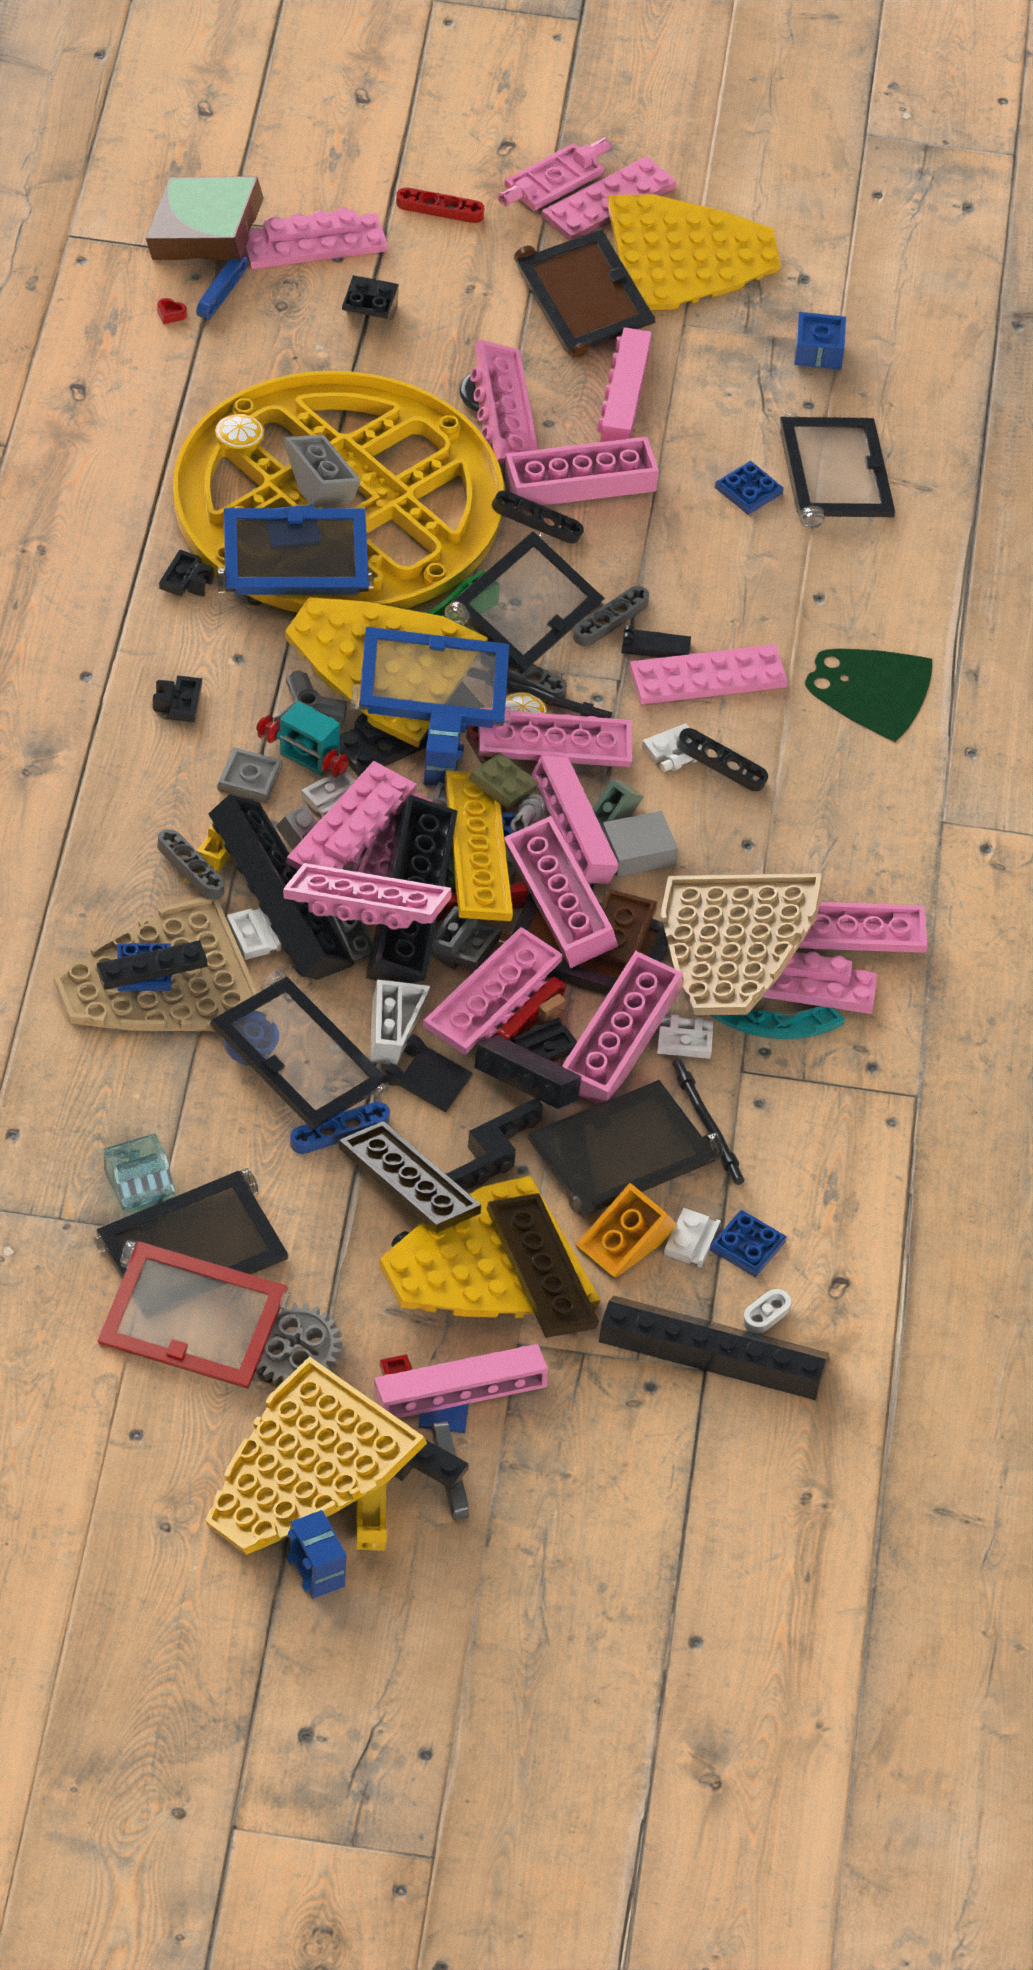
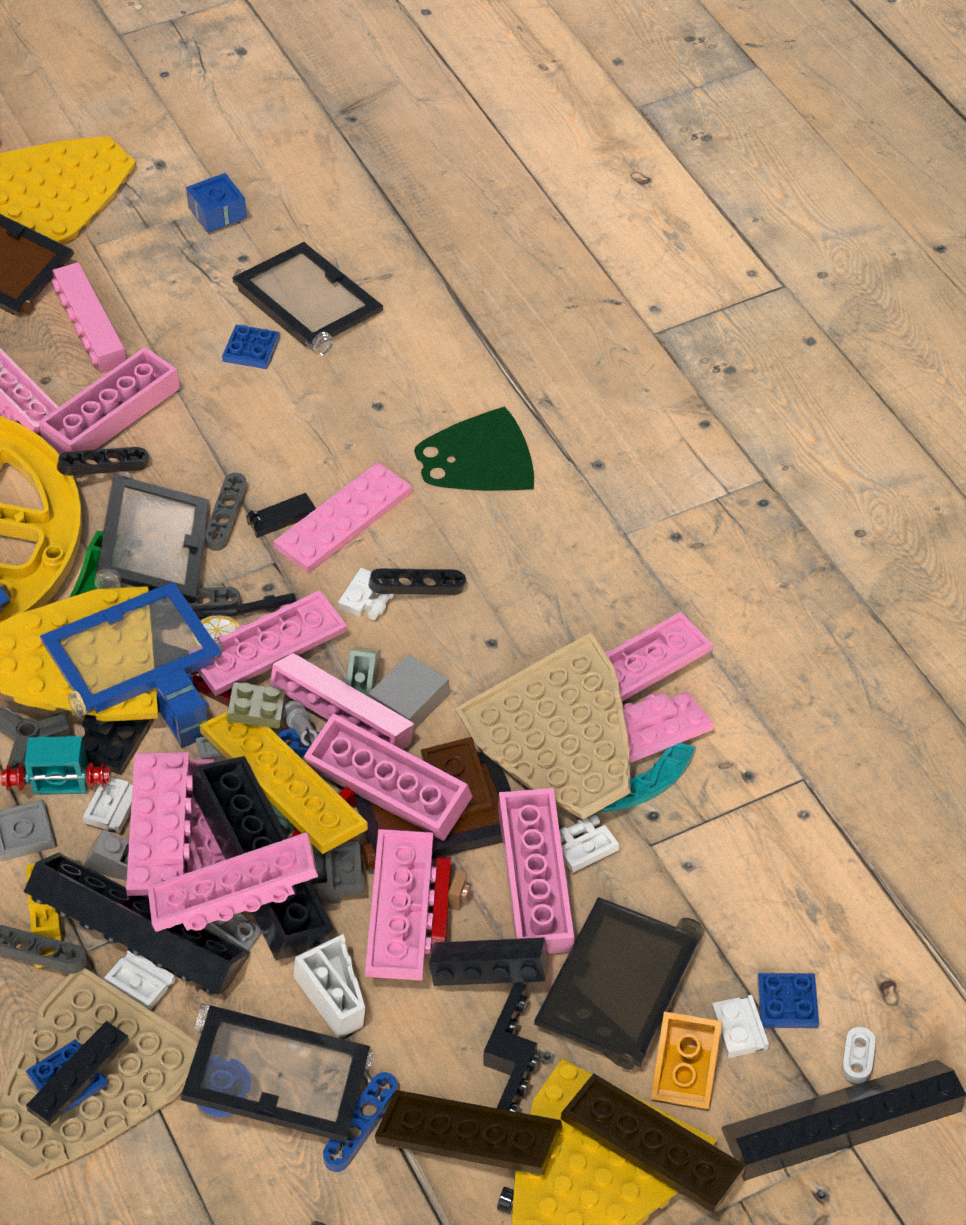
camera: 30 degrees left, 0 degrees up
(429, 1075) = (400, 1018): black flag -> none
(548, 1040) = (476, 920): black plate -> none
(687, 1083) = (618, 884): black bar -> none

